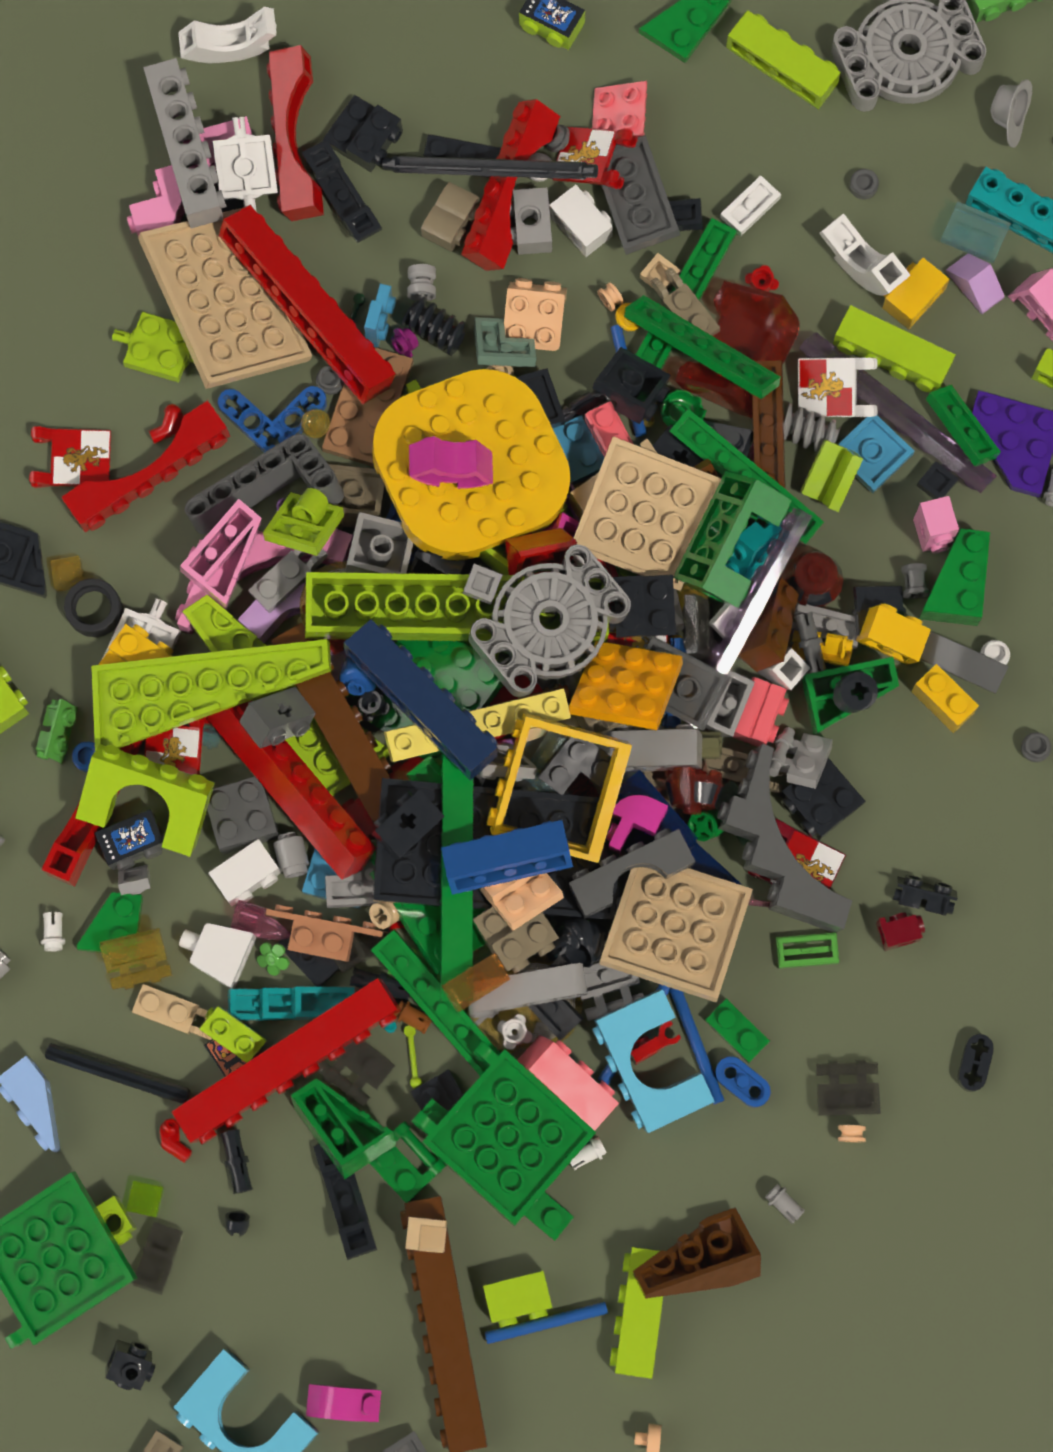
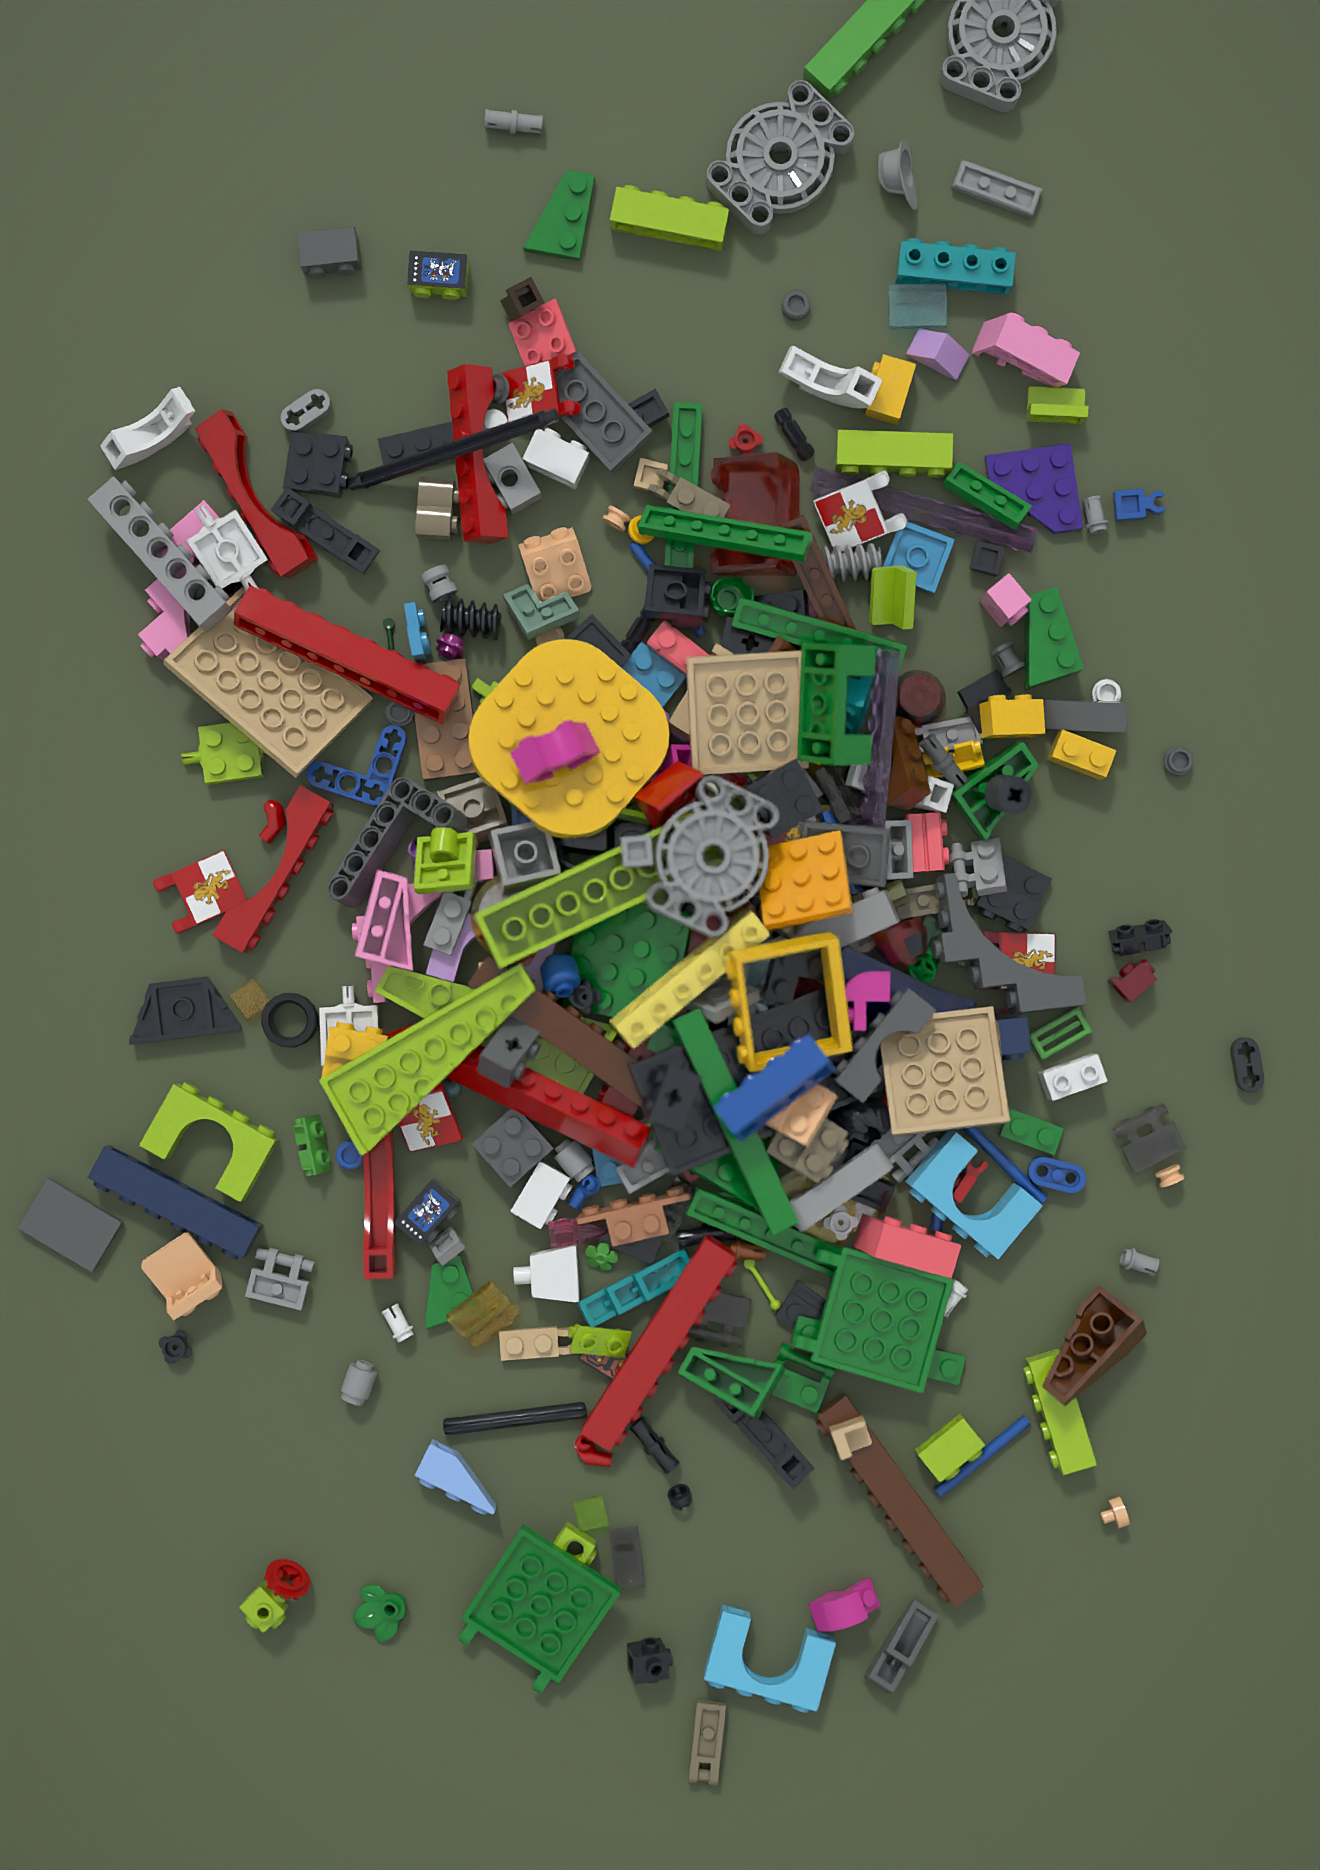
camera: 30 degrees left, 10 degrees up
(184, 794) = (389, 1164): lime arch -> none
(291, 887) = (587, 1187): none -> blue arm
(315, 423) = (406, 760): clear yellow plate -> none
(376, 83) = (302, 405): none -> light grey beam
(379, 918) = (684, 1181): tan bush -> none
(421, 699) = (633, 984): dark blue brick -> none
(475, 982) = (795, 1206): clear orange plate -> none
(615, 69) = (521, 299): none -> dark brown brick
(750, 205) = (703, 373): white plate -> none
(757, 927) = (1013, 1037): none -> dark blue brick
(800, 994) = (1072, 1077): none -> white brick
(809, 295) = (794, 434): none -> black axle

